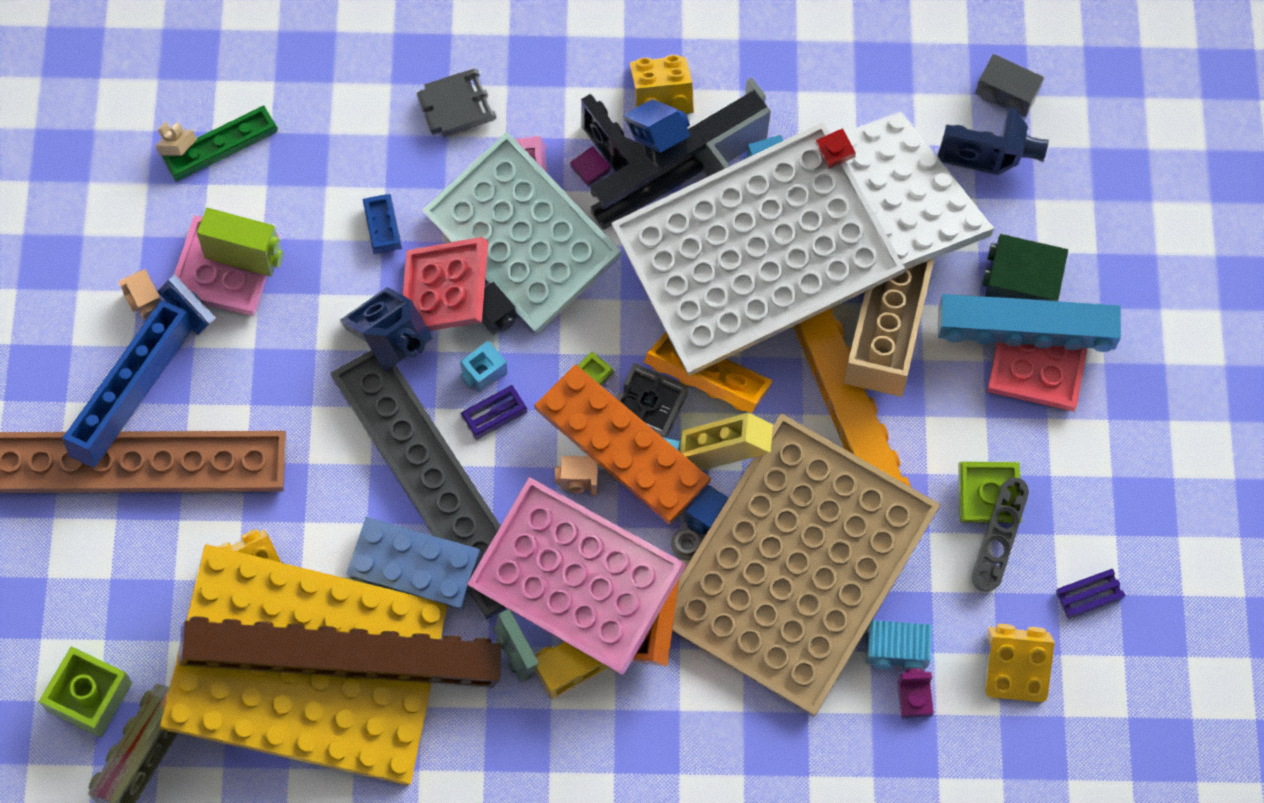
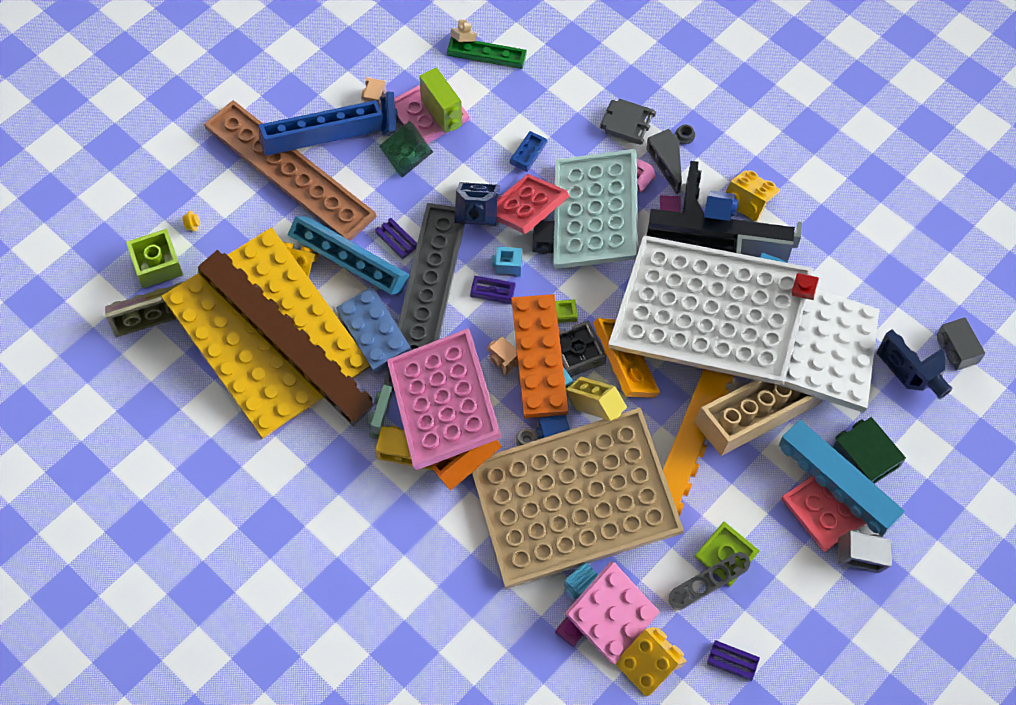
camera: 45 degrees right, 5 degrees down
(79, 614) = (191, 221): none -> yellow plate
(246, 329) = (406, 149): none -> clear green plate
(303, 504) = (348, 255): none -> dark azure brick
(333, 440) = (386, 227): none -> dark purple tile
(528, 64) = (685, 130): none -> dark grey plate
(536, 110) = (666, 154): none -> dark grey slope
(944, 648) = (612, 612): none -> bright pink plate
(1113, 377) = (864, 551): none -> brick

